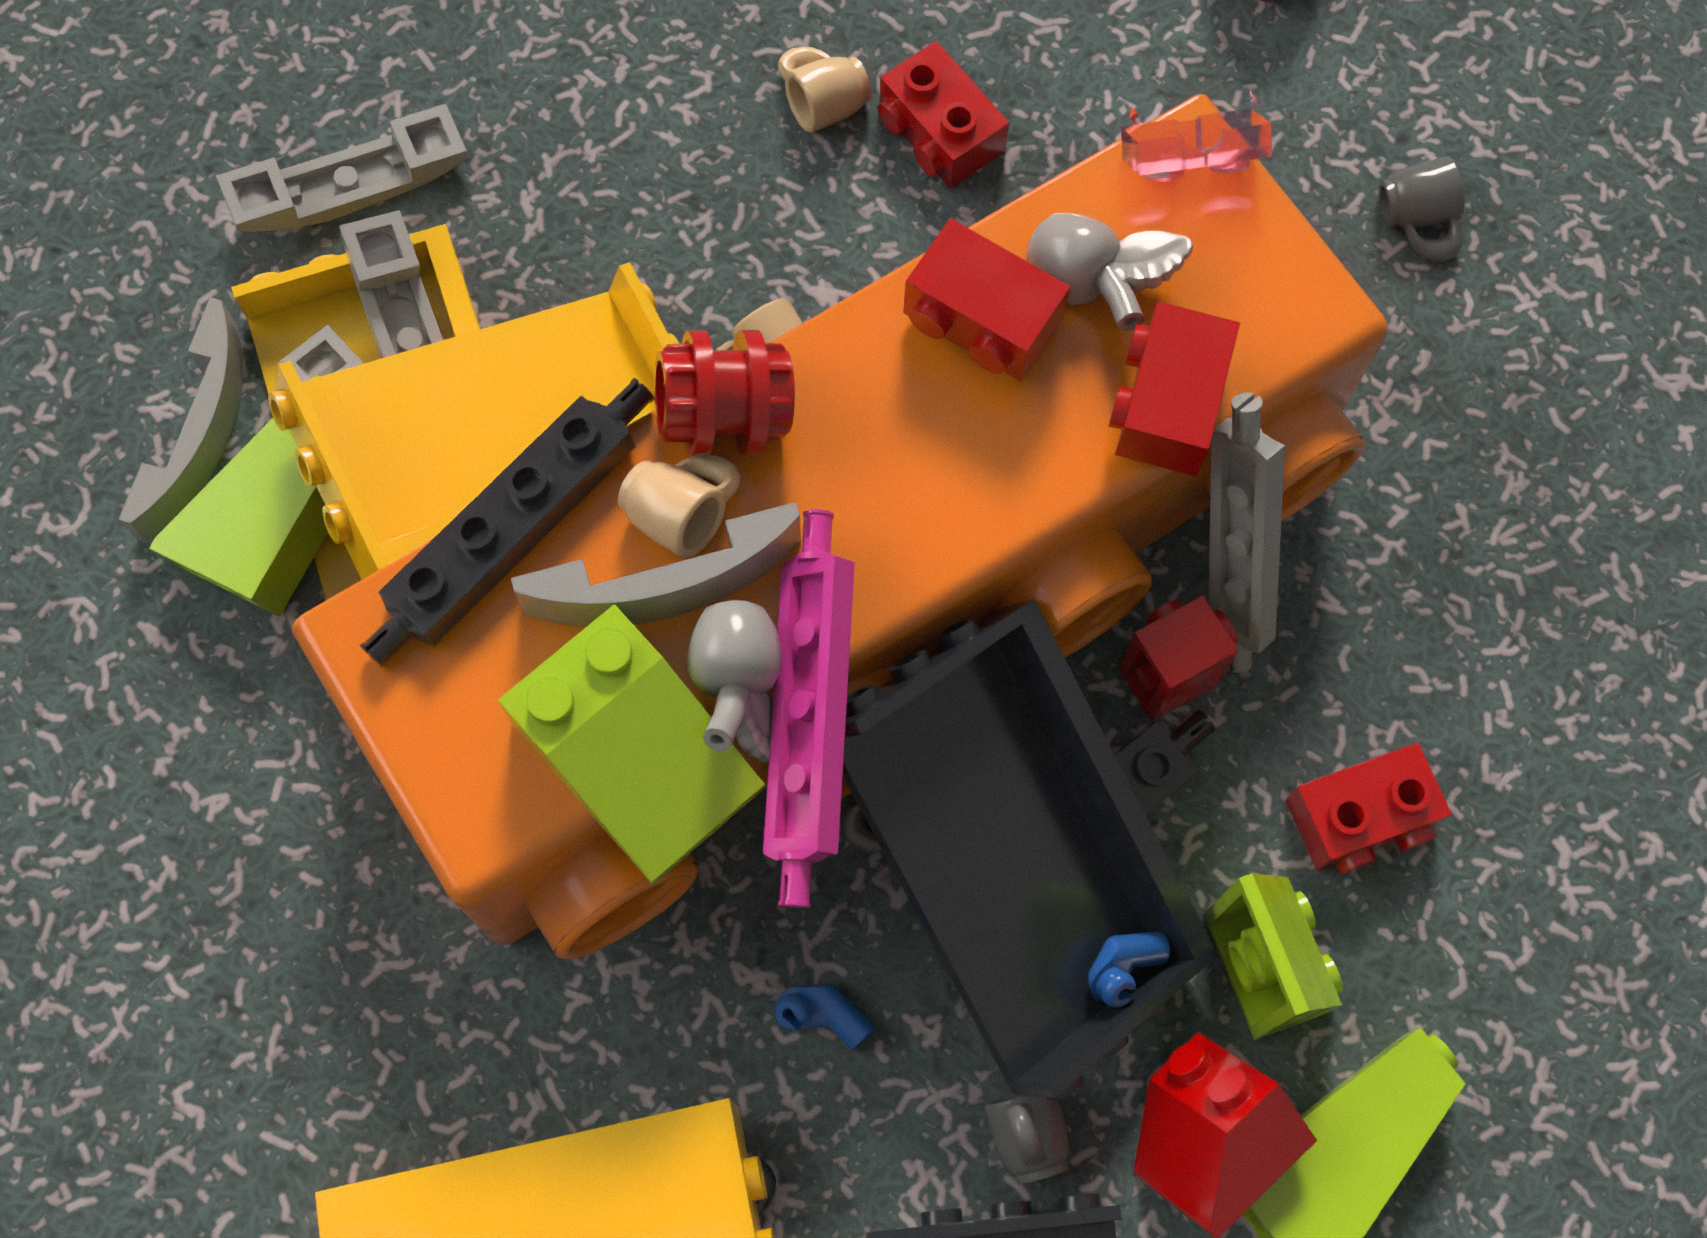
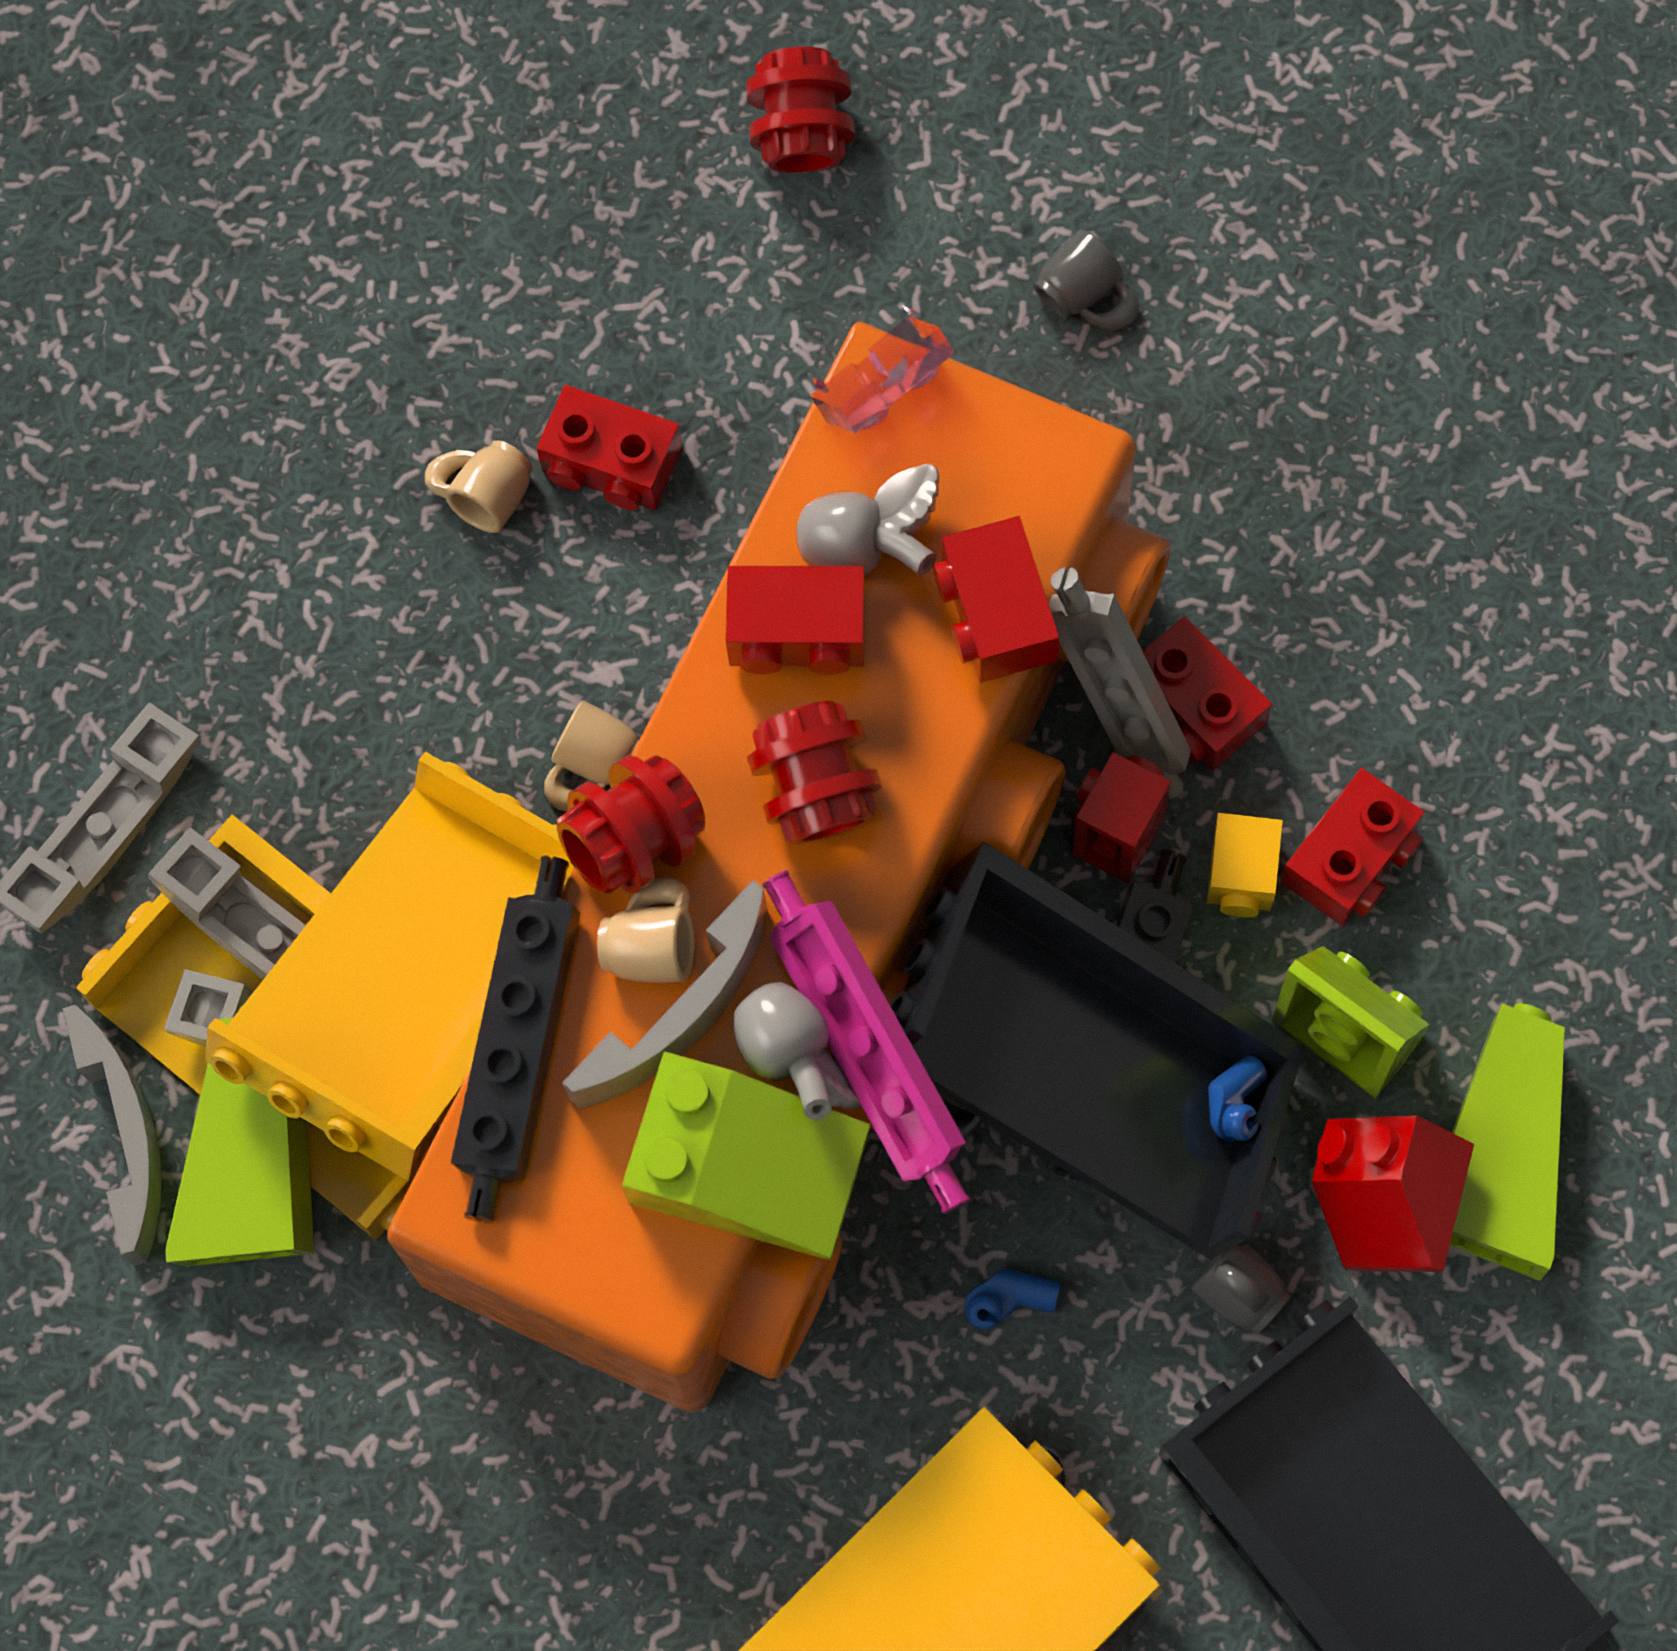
camera: 25 degrees left, 0 degrees up
(913, 441) = (814, 771): none -> red piece
(1262, 764) = (1244, 864): none -> yellow brick
(1317, 599) = (1206, 693): none -> red brick

